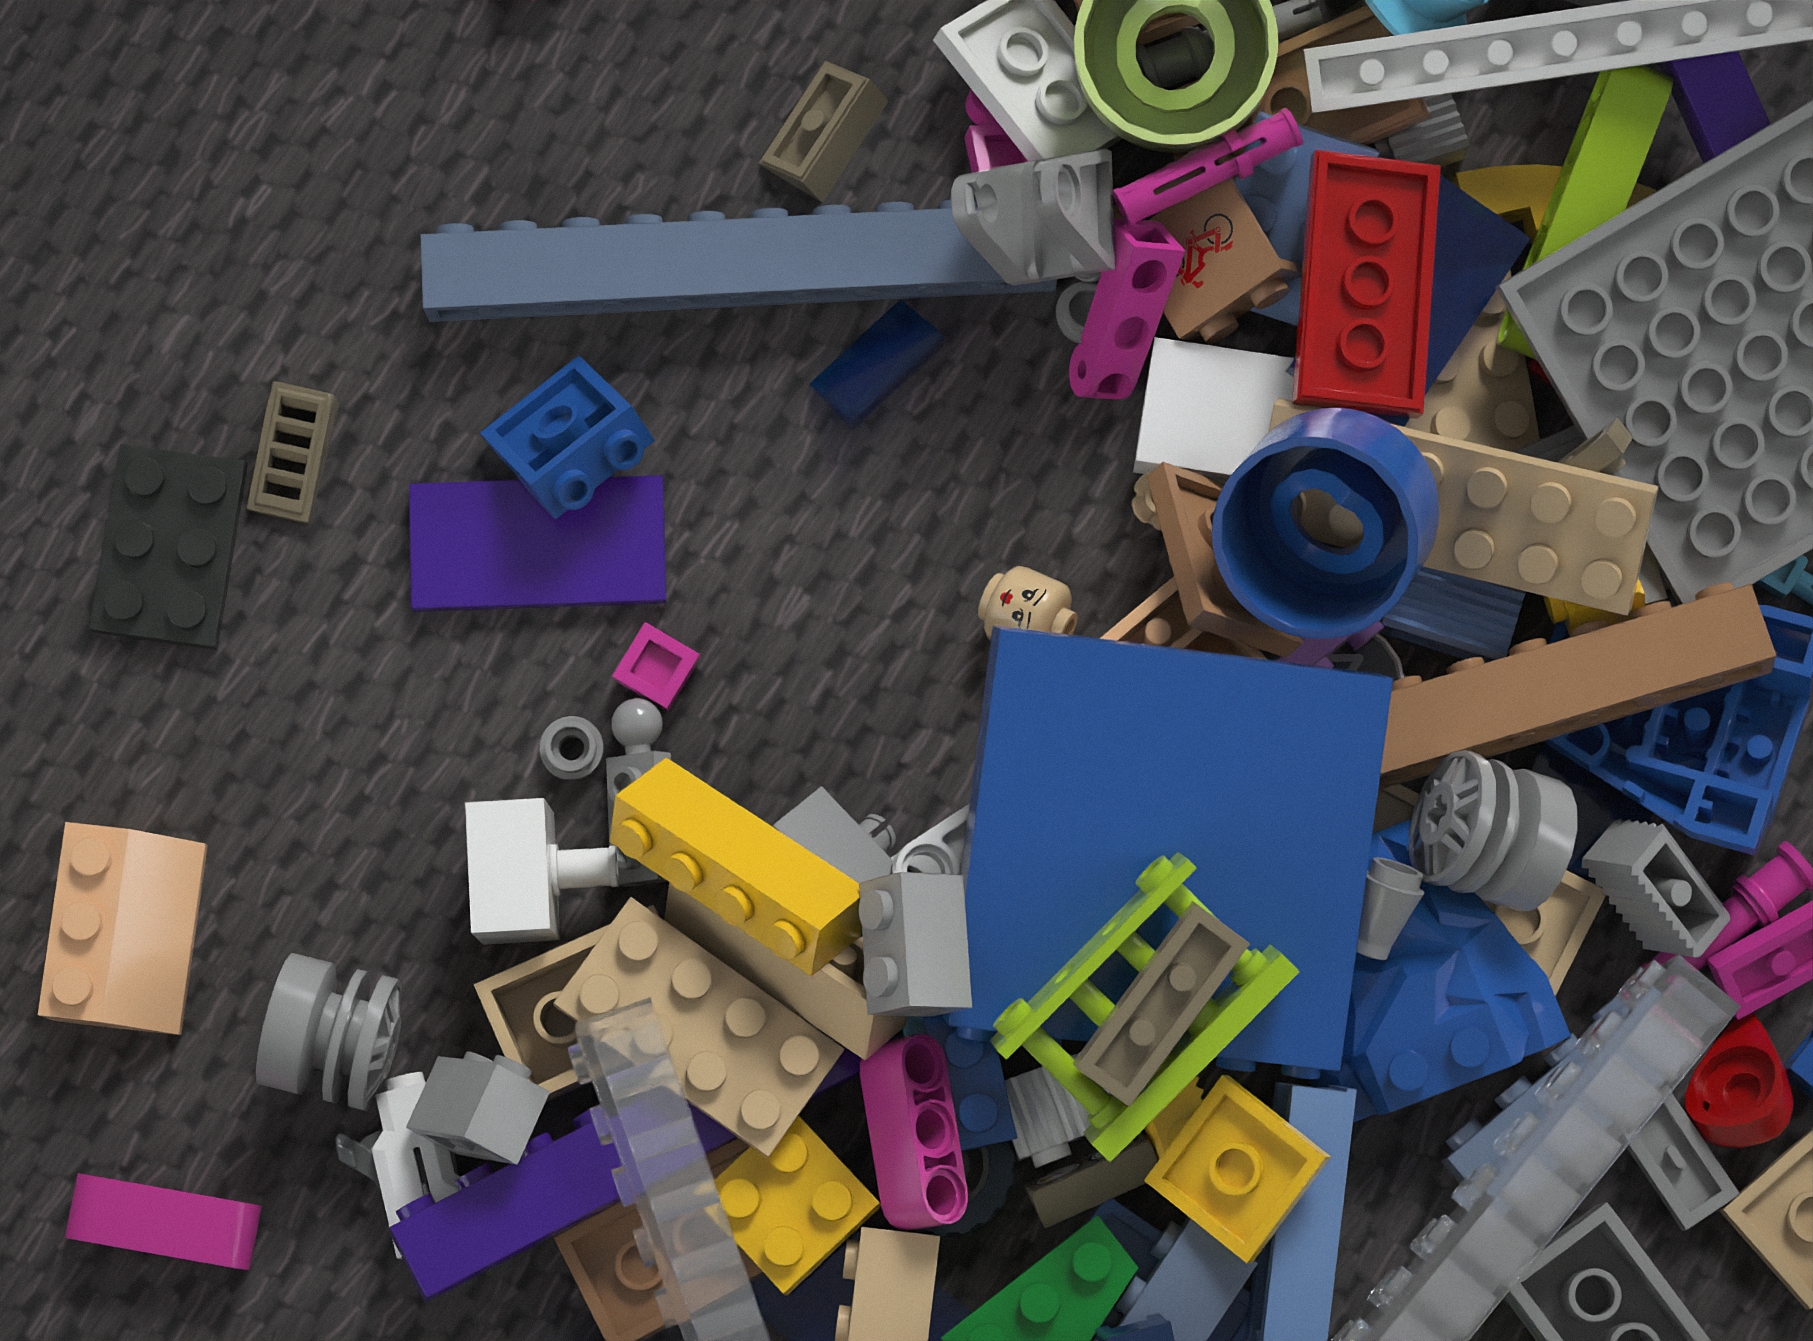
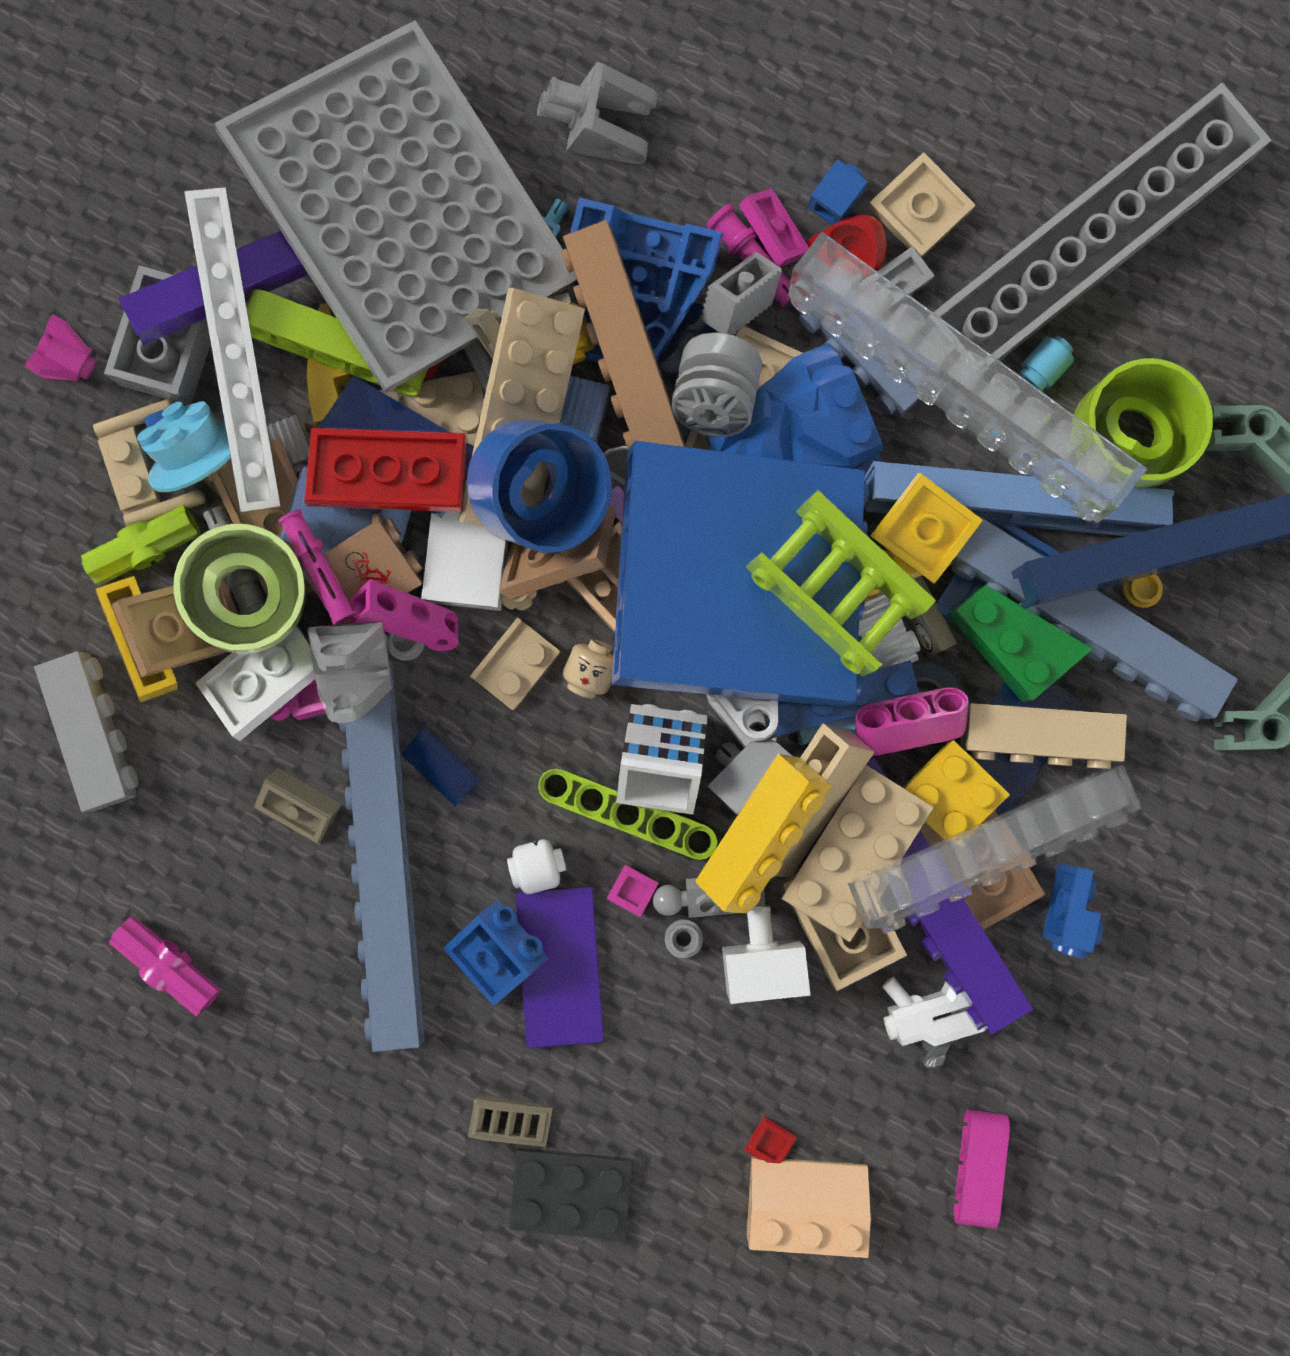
camera: 90 degrees left, 5 degrees up
(229, 876) = (770, 1141): none -> red tile
(331, 1032) = (866, 1082): light grey wheel -> none
(479, 1107) = (914, 983): light grey brick -> none
(704, 509) = (536, 866): none -> white head
(788, 632) = (607, 814): none -> lime beam
(872, 716) = (662, 758): none -> white slope
(915, 944) = (812, 723): light grey brick -> none
(1042, 491) = (515, 664): none -> tan plate
(1161, 1003) = (843, 571): dark tan plate -> none
(1388, 903) = (764, 443): light grey cone -> none

